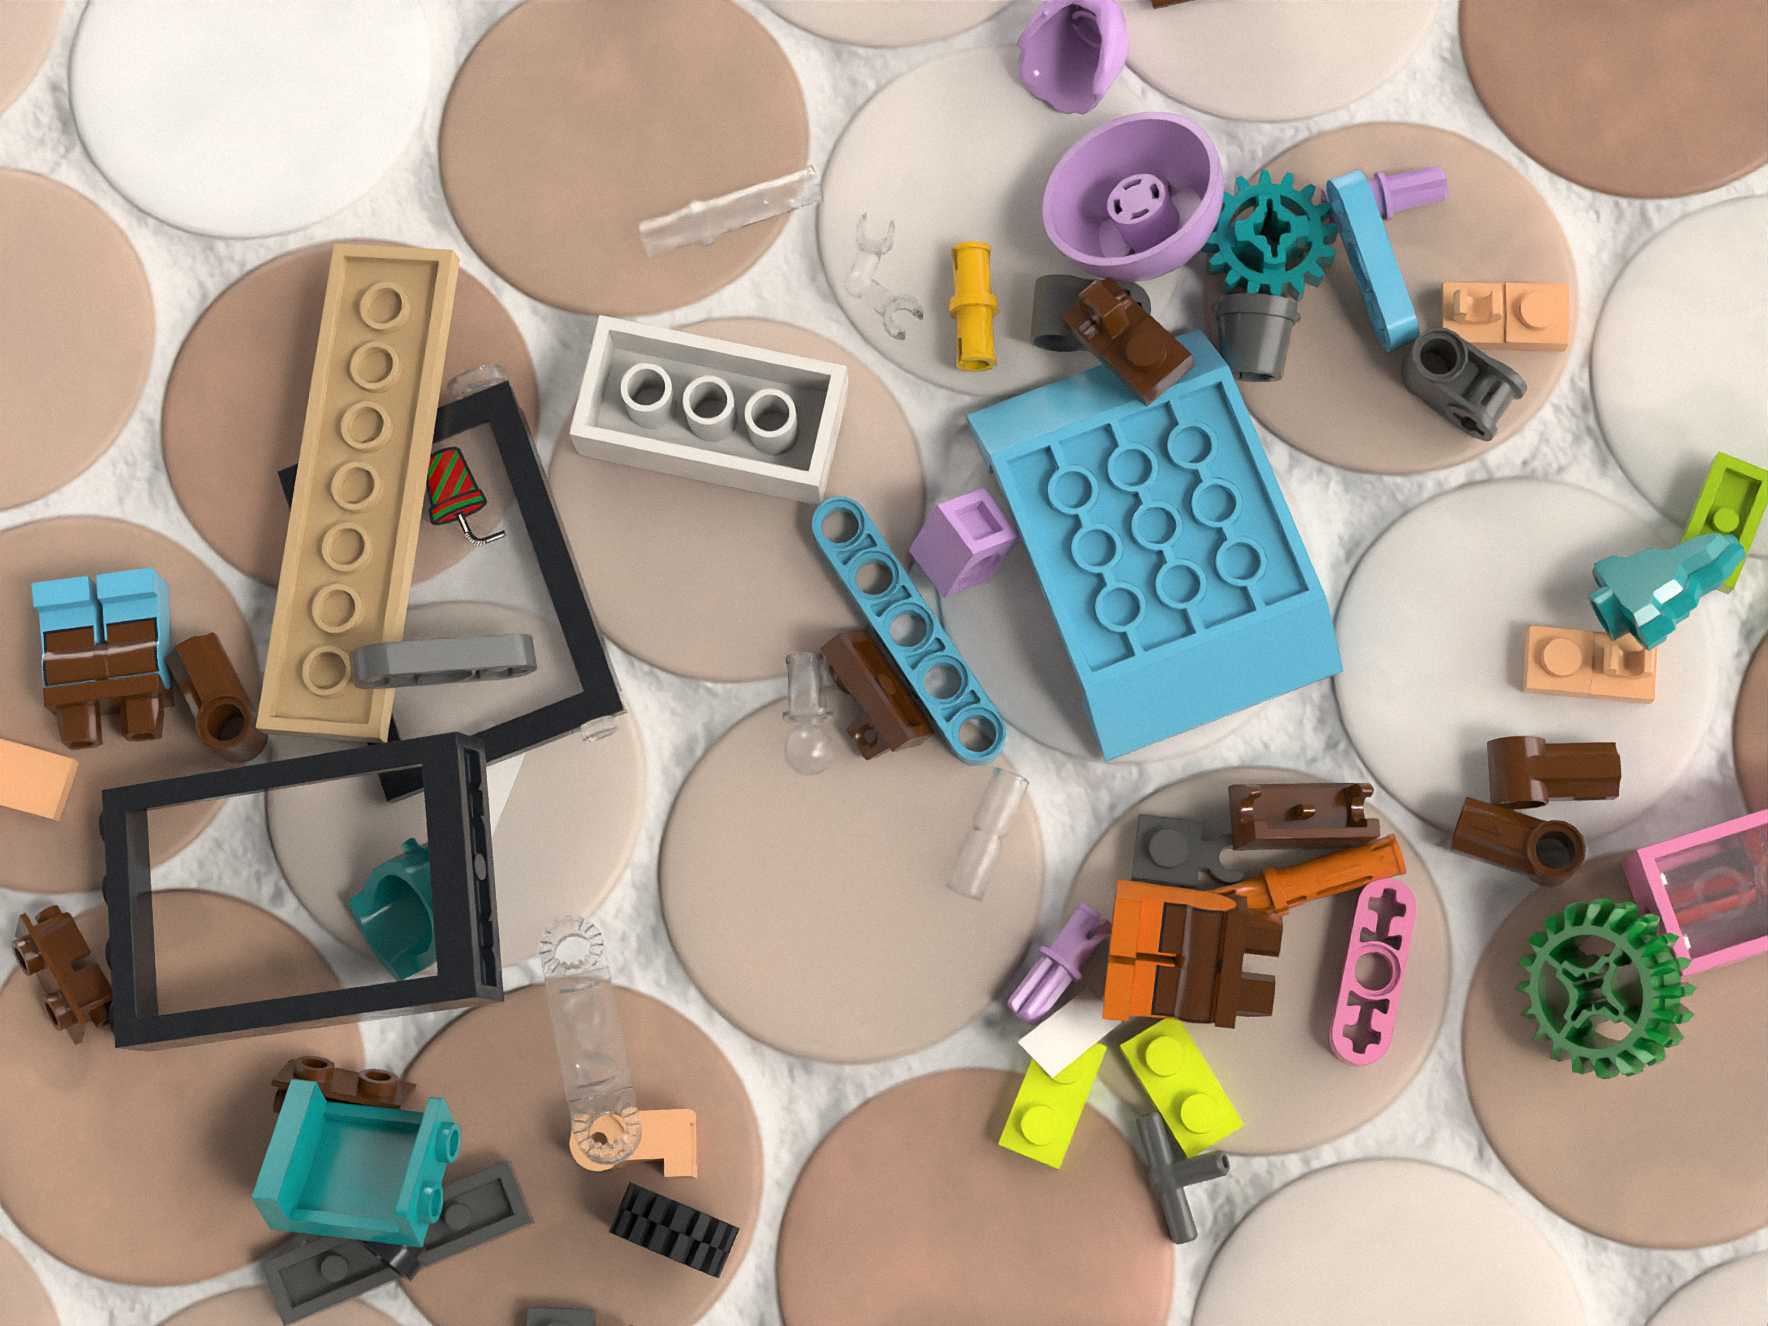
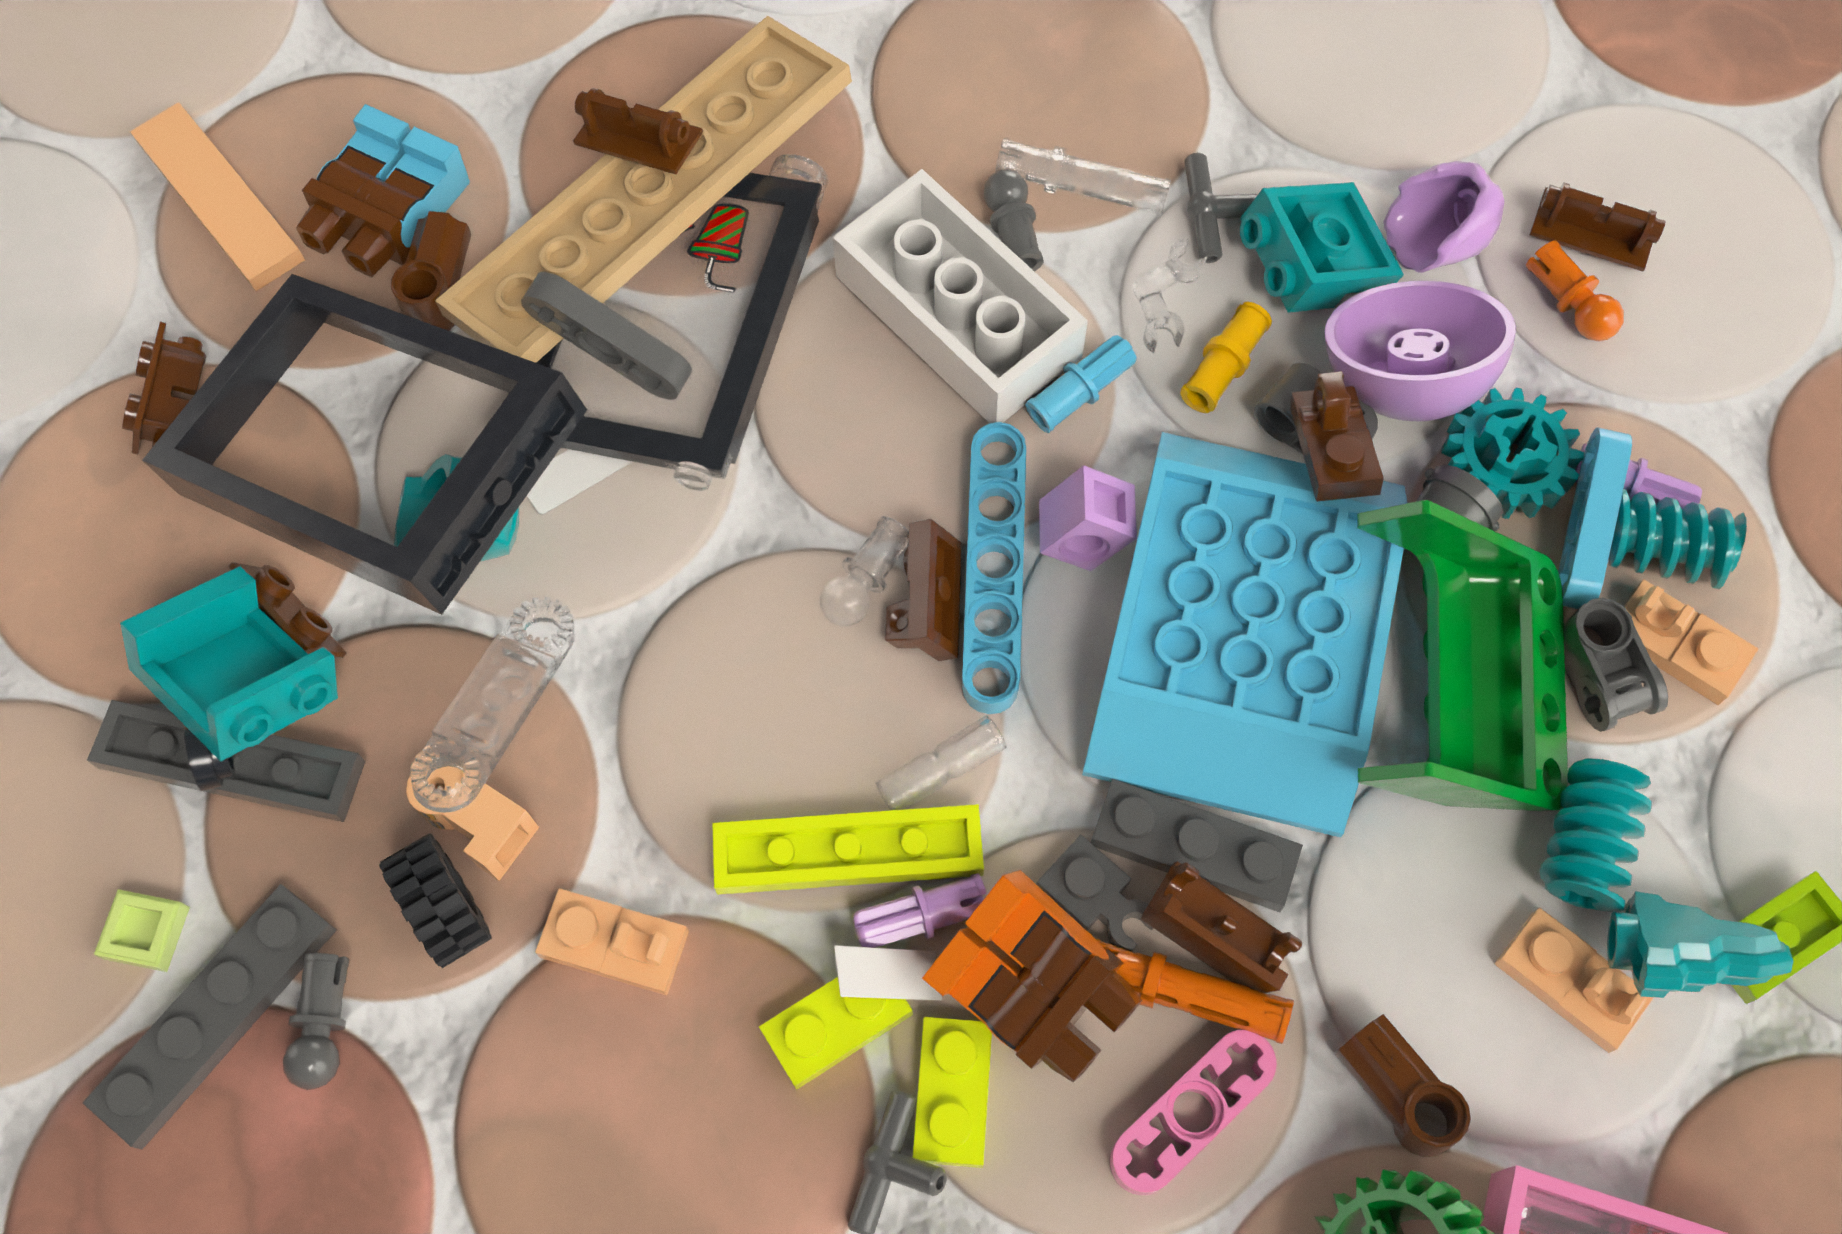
camera: 30 degrees right, 10 degrees down
(315, 450) = (634, 133): none -> reddish brown hinge
(675, 274) = (1013, 217): none -> dark grey pin
(829, 1160) = (612, 941): none -> light nougat plate
(857, 169) = (1206, 208): none -> dark grey piece
(867, 414) = (1081, 383): none -> medium azure axle
(964, 955) = (847, 849): none -> neon yellow plate
(982, 146) = (1317, 244): none -> teal plate
(1237, 753) = (1225, 852): none -> dark grey plate
(1259, 55) = (1596, 315): none -> orange pin
(1376, 457) = (1491, 665): none -> green windscreen
(1449, 229) = (1678, 536): none -> teal piece
(1532, 773) = (1458, 1037): reddish brown piece -> none
(1536, 538) = (1591, 834): none -> teal piece

